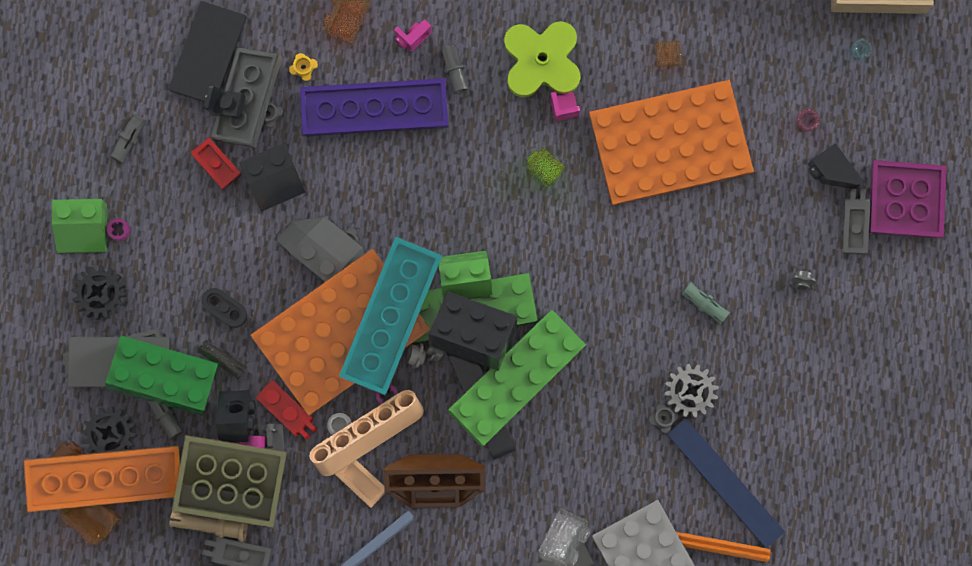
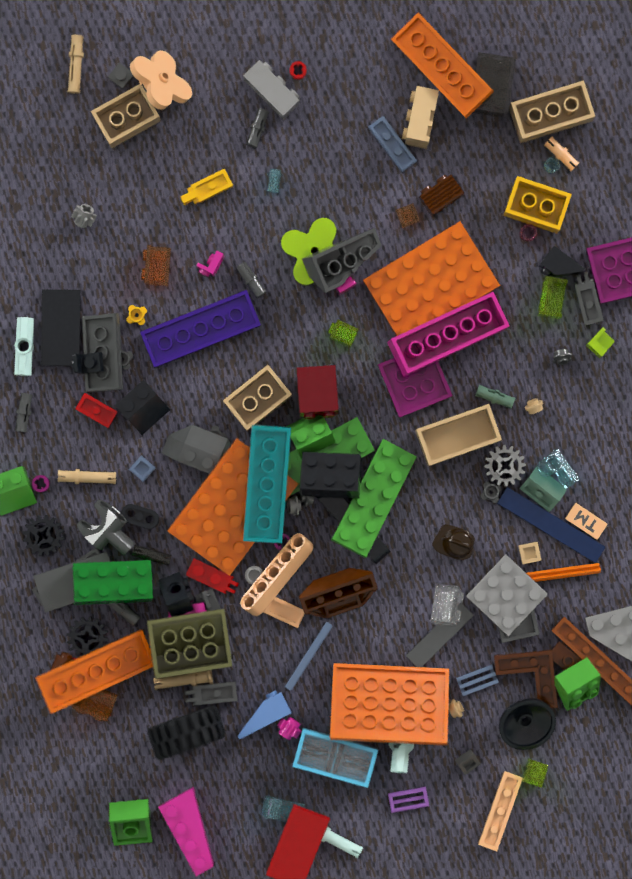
camera: 20 degrees left, 5 degrees up
(150, 74) = (24, 333): none -> light aqua piece
(176, 239) = (86, 477): none -> tan pin
(180, 311) = (108, 531): none -> dark grey connector
(247, 251) = (142, 468): none -> sand blue tile
(415, 209) = (257, 398): none -> tan brick
(490, 224) = (317, 391): none -> dark red slope
(565, 78) = (337, 262): none -> dark grey wedge
(598, 465) = (454, 542): none -> dark brown piece
(613, 252) = (416, 389): none -> magenta plate
(646, 334) = (458, 435): none -> tan piece
(672, 207) = (448, 334): none -> dark pink brick
(688, 508) = (529, 552): none -> tan plate
(716, 41) = (441, 195): none -> reddish brown brick
(729, 435) = (543, 490): none -> sand green panel
(750, 329) = (534, 406): none -> tan plate
(758, 414) = (558, 466): none -> clear light blue plate
(770, 492) = (586, 521): none -> light nougat tile
(813, 206) = (552, 297): none -> clear neon green panel
(829, 88) = (537, 204): none -> yellow brick
(854, 280) = (600, 343): none -> lime panel
(877, 39) = (561, 153): none -> light nougat pin

